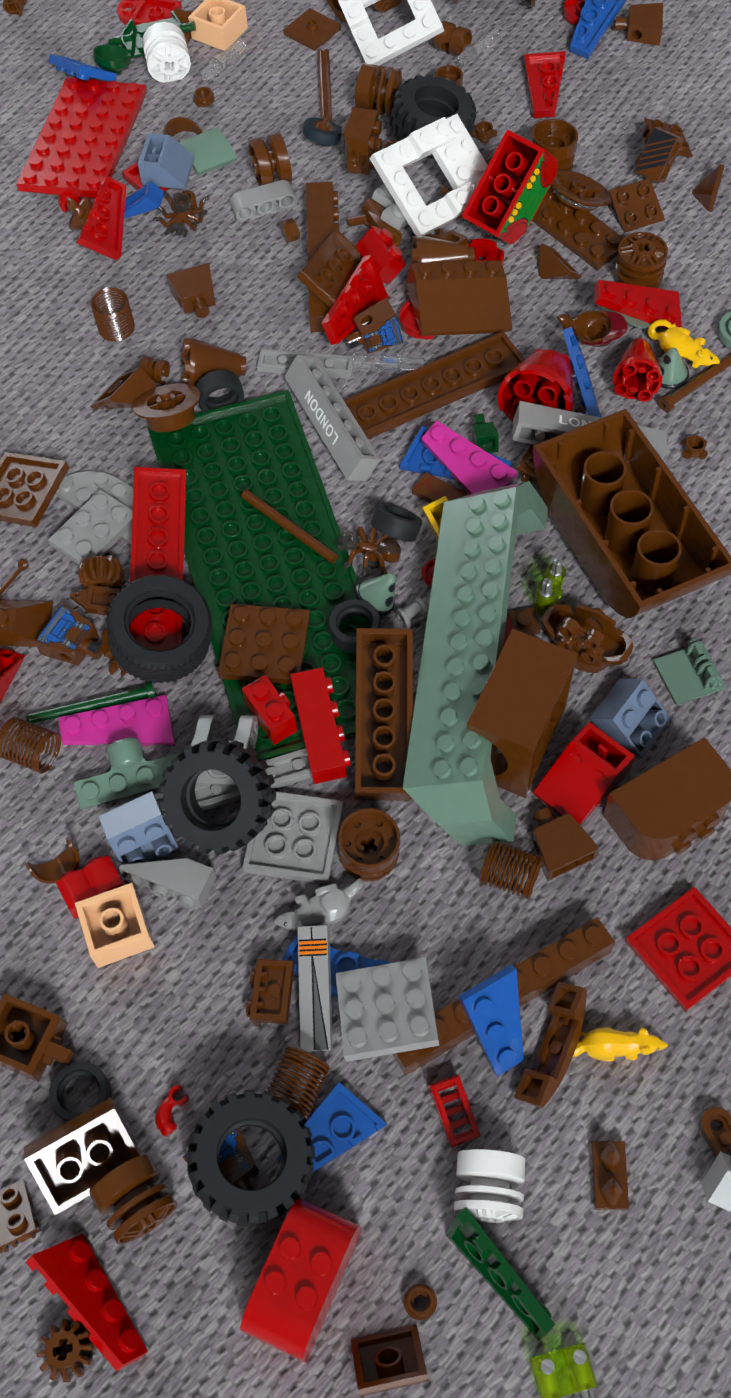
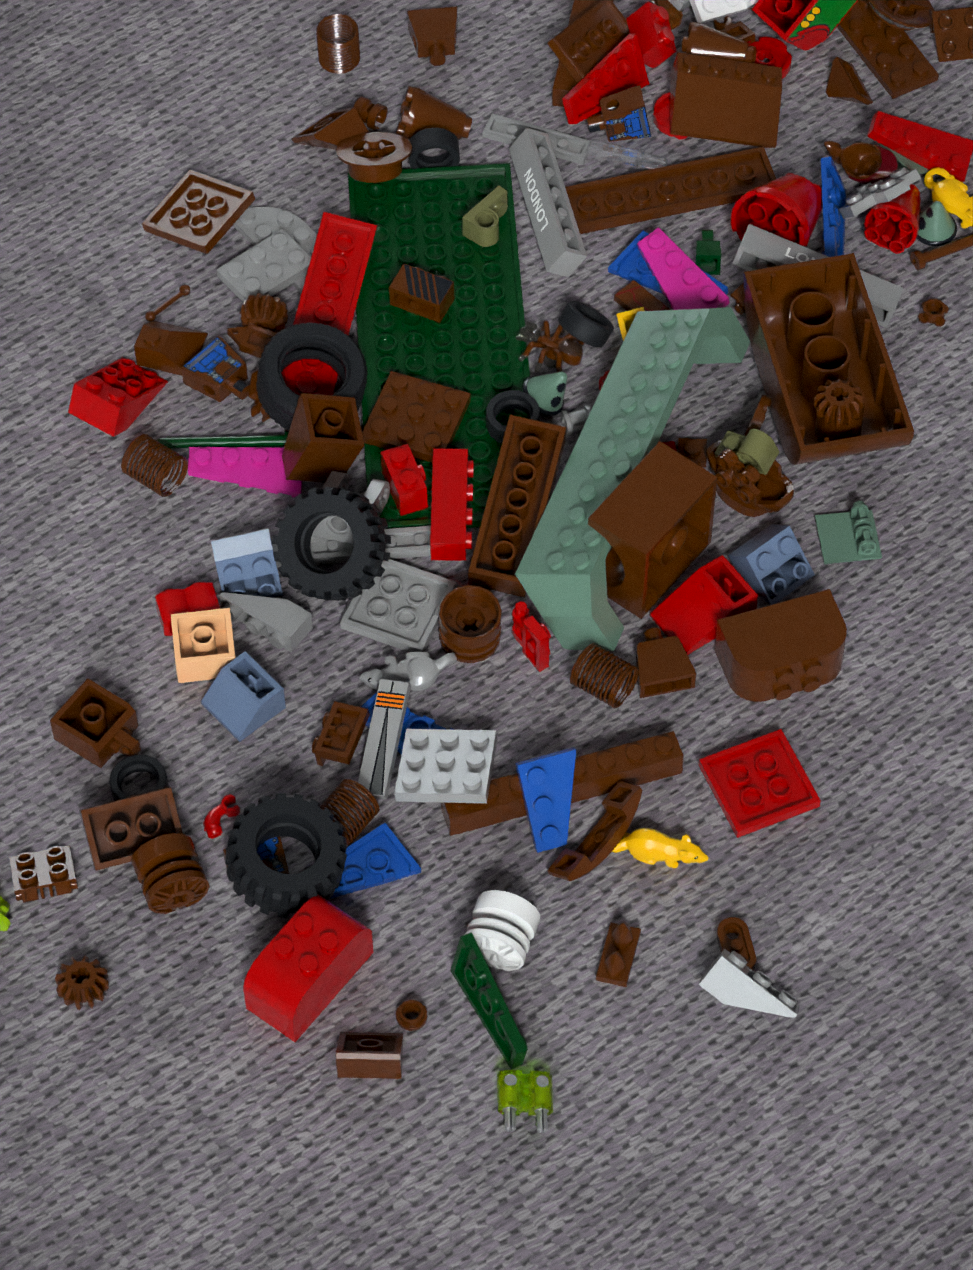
camera: 10 degrees right, 5 degrees down
(53, 870) = (150, 588): reddish brown helmet -> none
(84, 1287) = (113, 945): red wing -> none
(128, 775) = (246, 514): sand green plate -> none
(165, 973) = (244, 697): none -> sand blue slope
(183, 686) = (322, 437): none -> reddish brown slope
(241, 523) = (421, 293): none -> reddish brown brick
(279, 445) = (482, 221): none -> olive plate
(289, 526) = (474, 308): reddish brown axle -> none
(434, 1088) = (481, 848): red slope -> none
(435, 847) = (531, 636): none -> red plate
(550, 587) = (729, 418): clear neon green piece -> none
(576, 582) = (759, 414): none -> reddish brown tile
(590, 613) = (754, 449): none -> olive plate
(608, 357) = (879, 192): none -> light grey plate
(641, 260) = (939, 99): reddish brown wheel -> none
(663, 553) = (838, 402): none -> reddish brown gear

